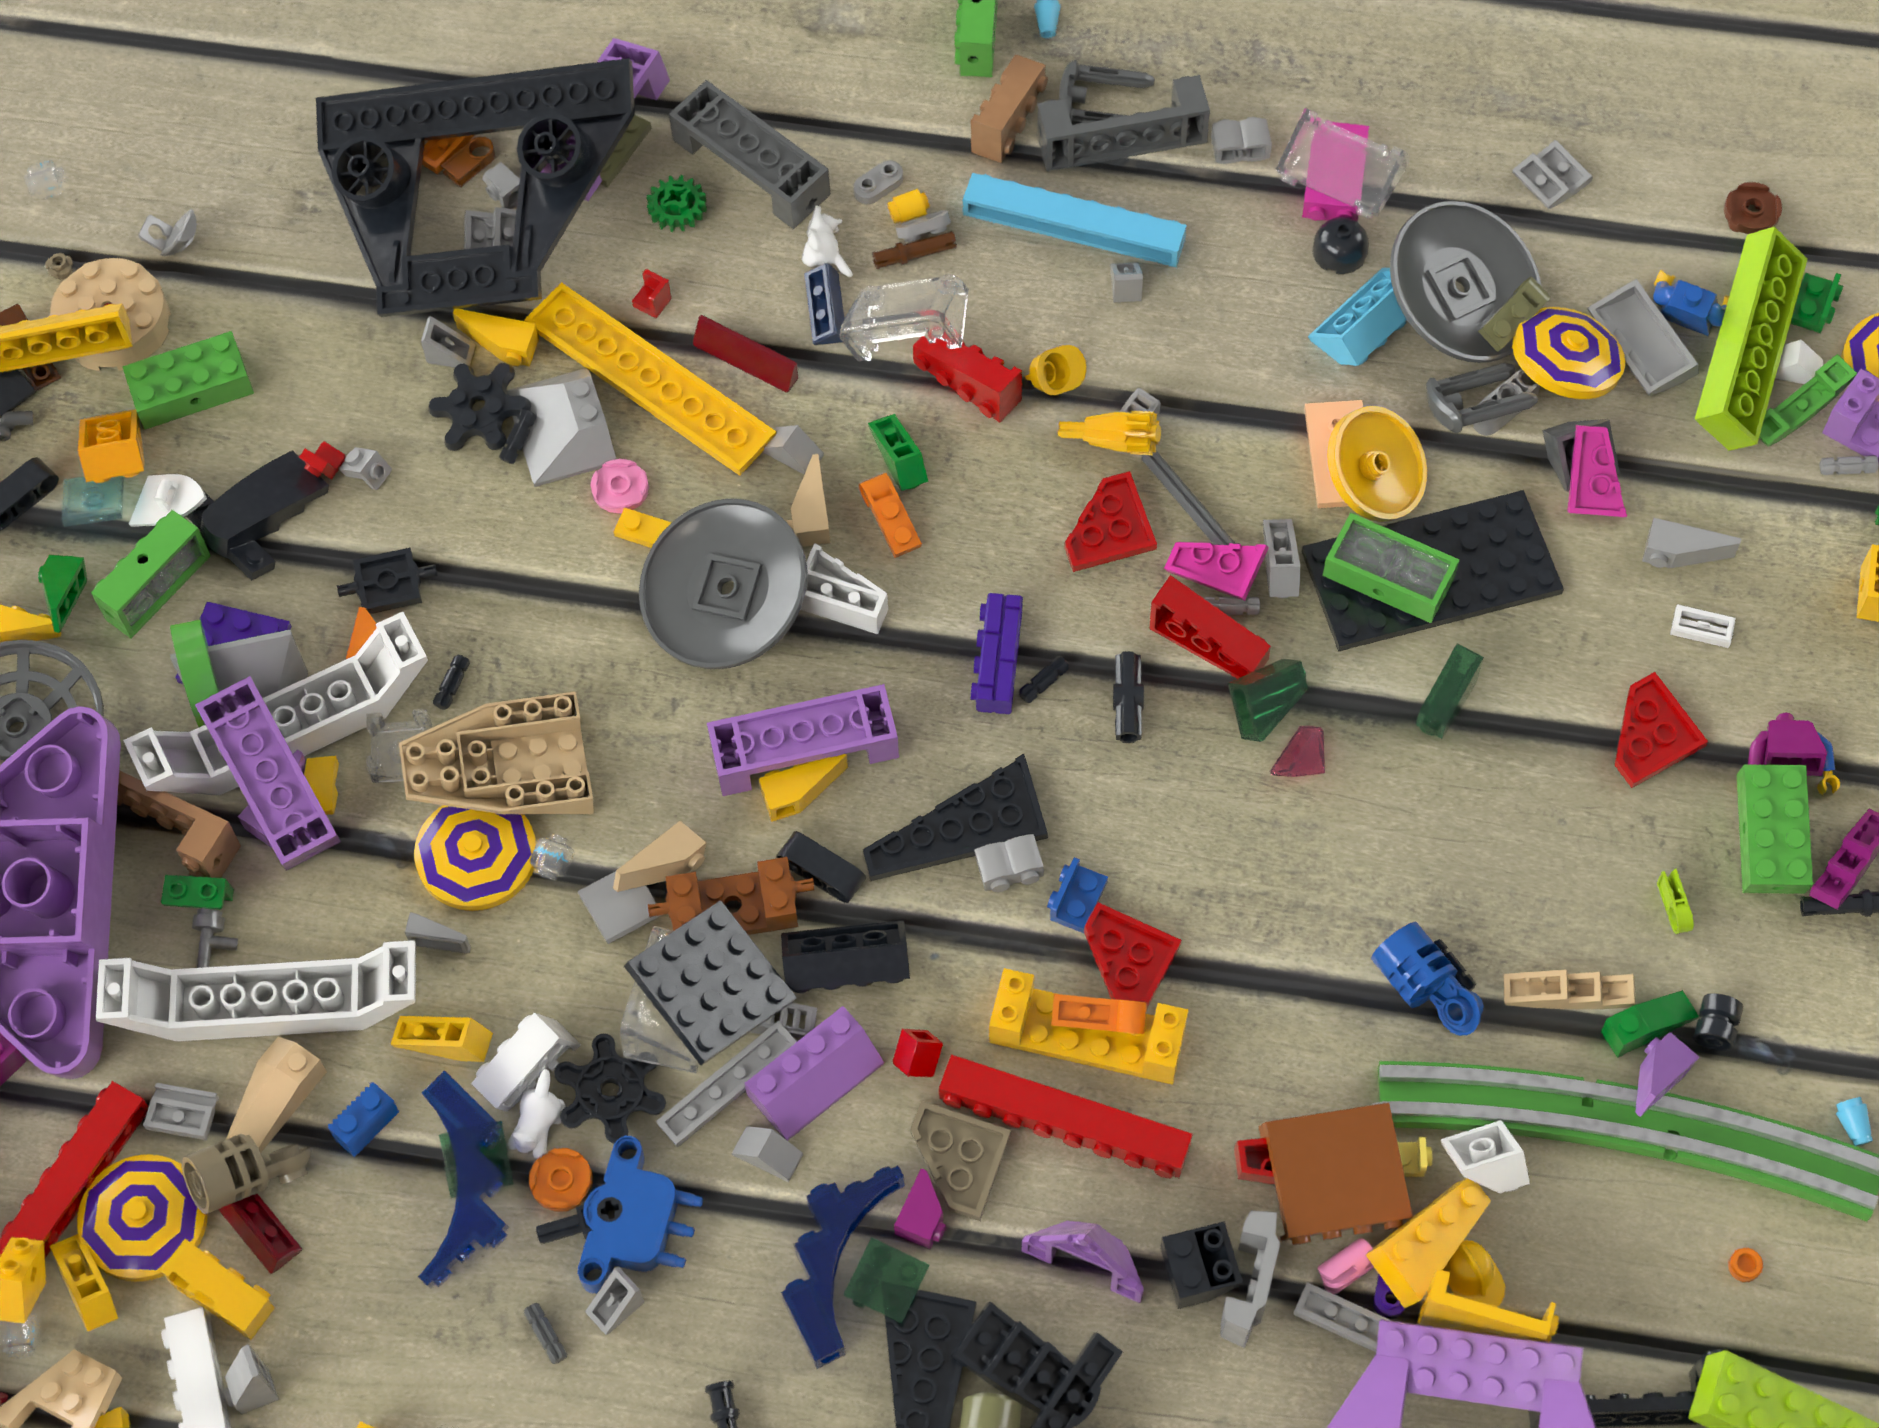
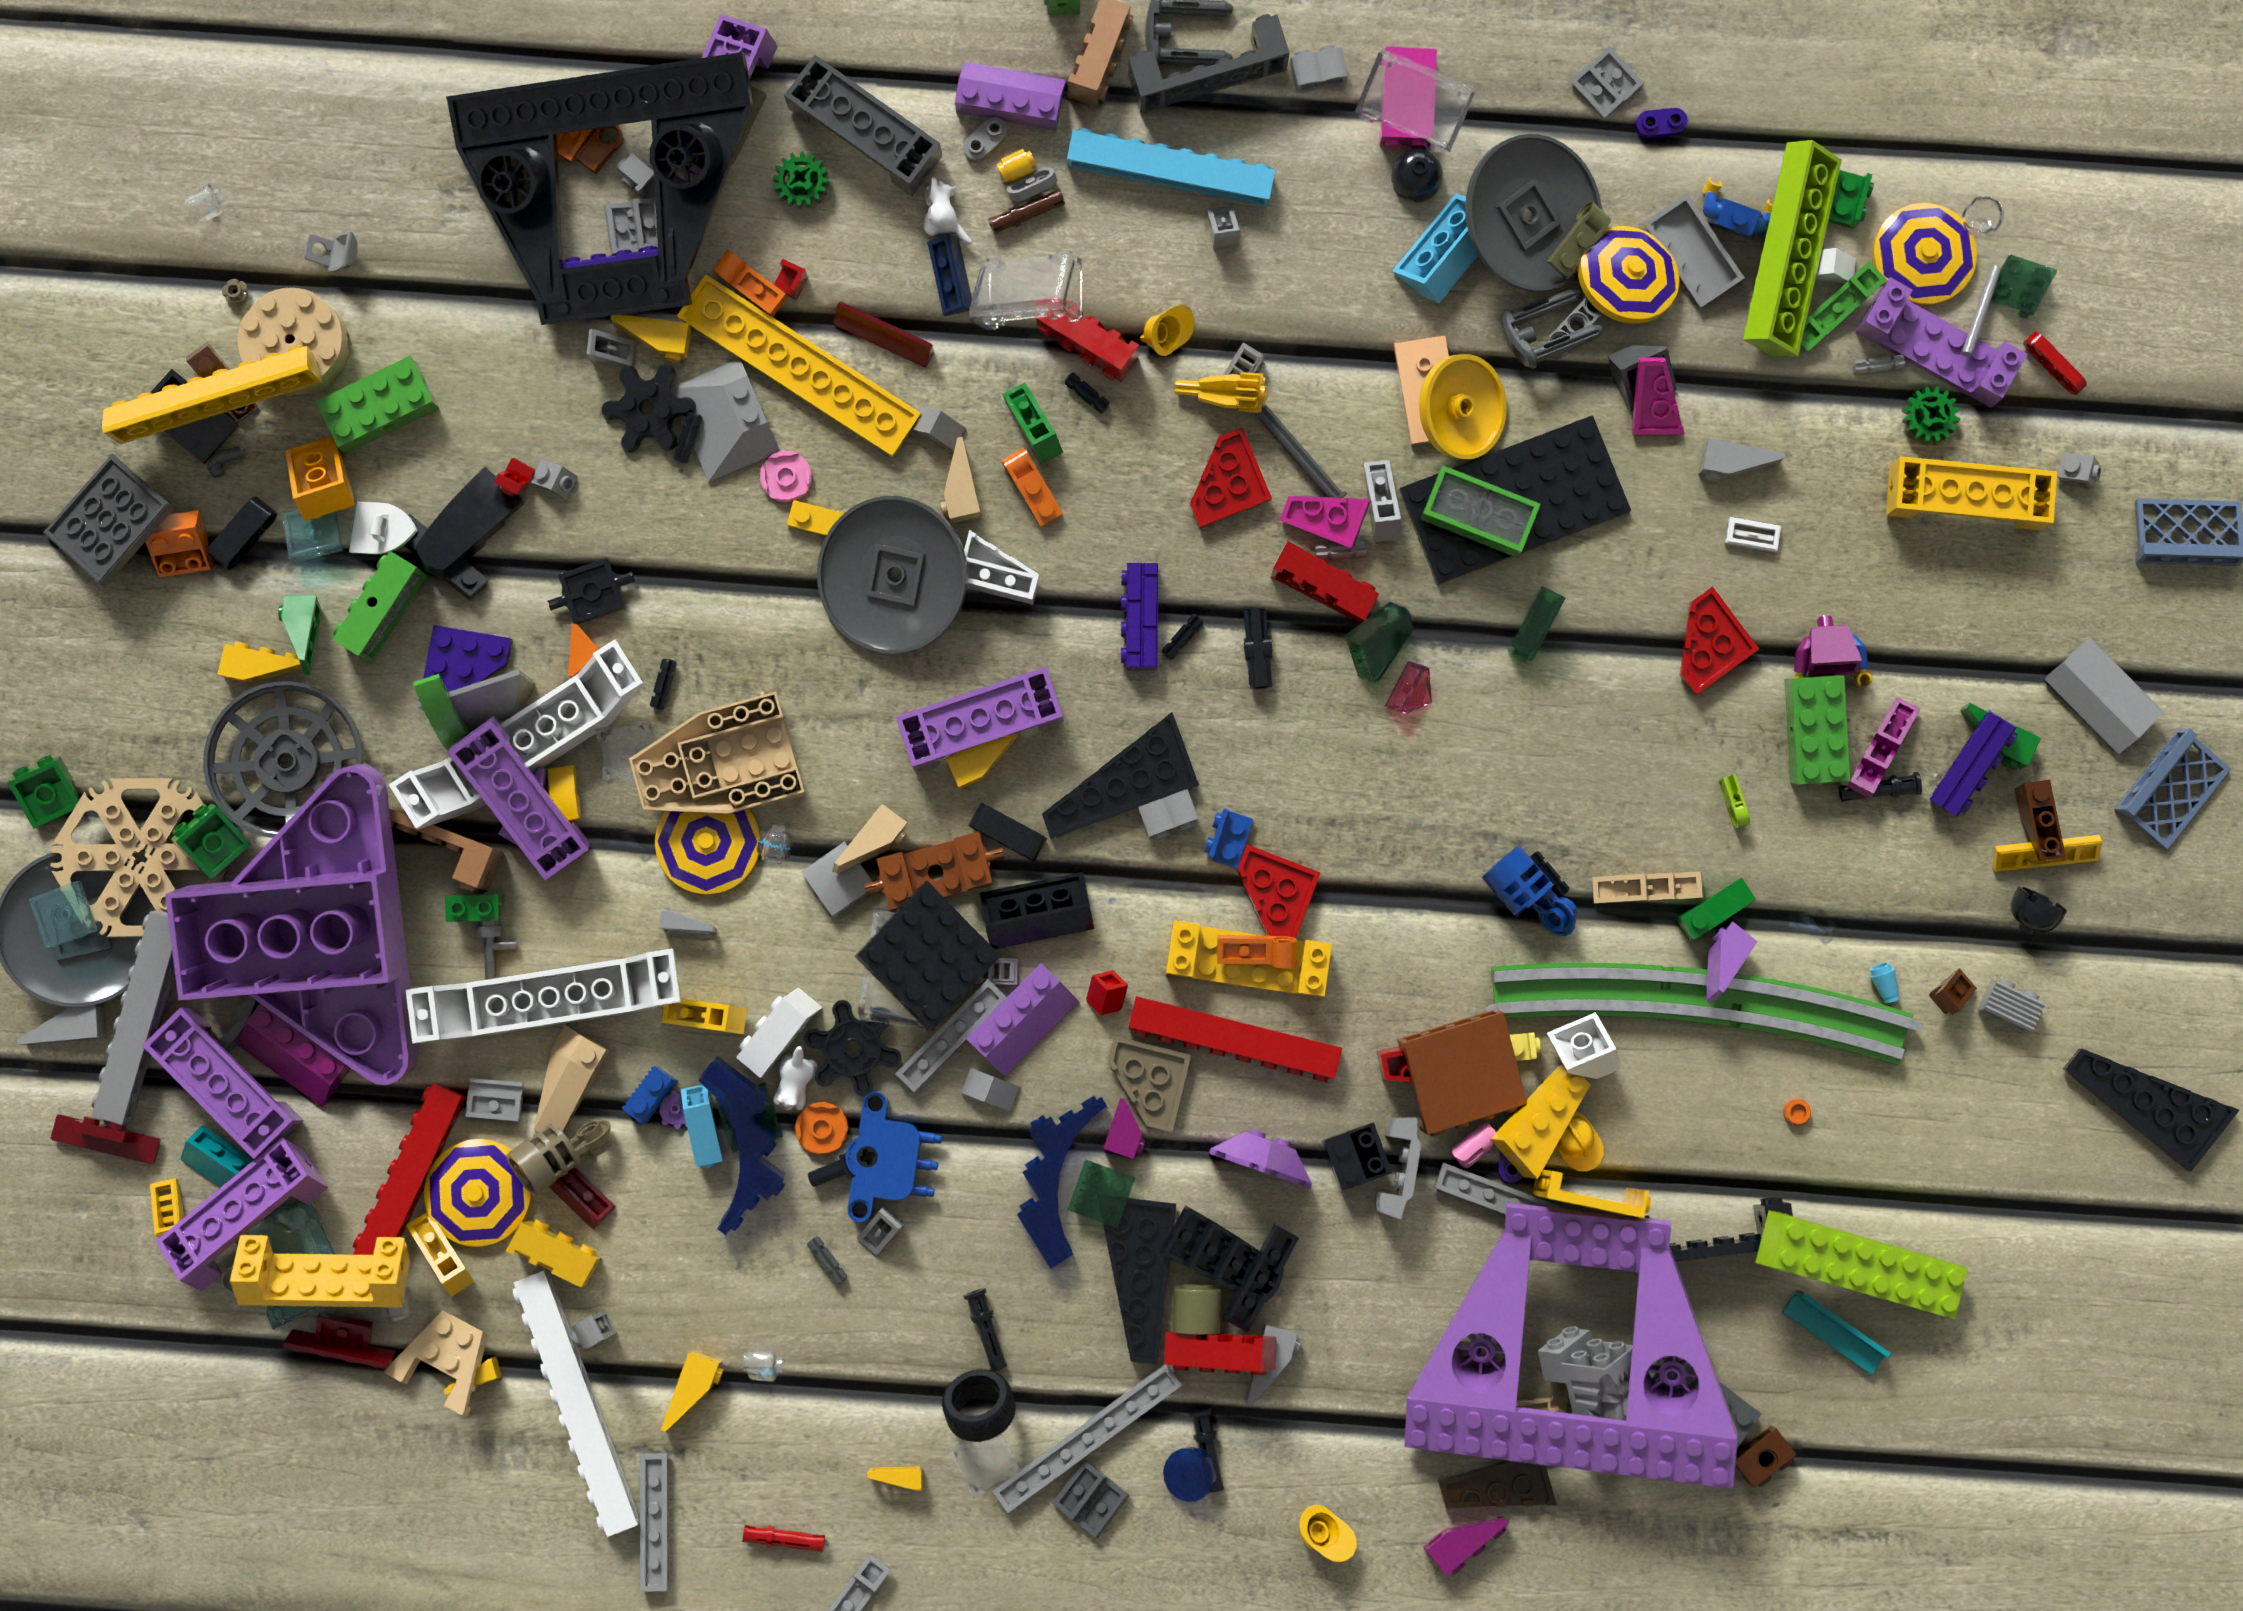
camera: 10 degrees left, 20 degrees up
(394, 1144) = (672, 1110): none -> medium lavender piece
(418, 1161) = (701, 1126): none -> medium azure slope
(606, 294) = (749, 283): none -> orange plate
(909, 143) = (1009, 95): none -> medium lavender slope
(961, 428) = (1086, 392): none -> black axle
(1610, 217) = (1662, 123): none -> dark purple plate
(1717, 1022) = (1772, 907): black wheel -> none
(1756, 194) = (1782, 117): copper plate -> none

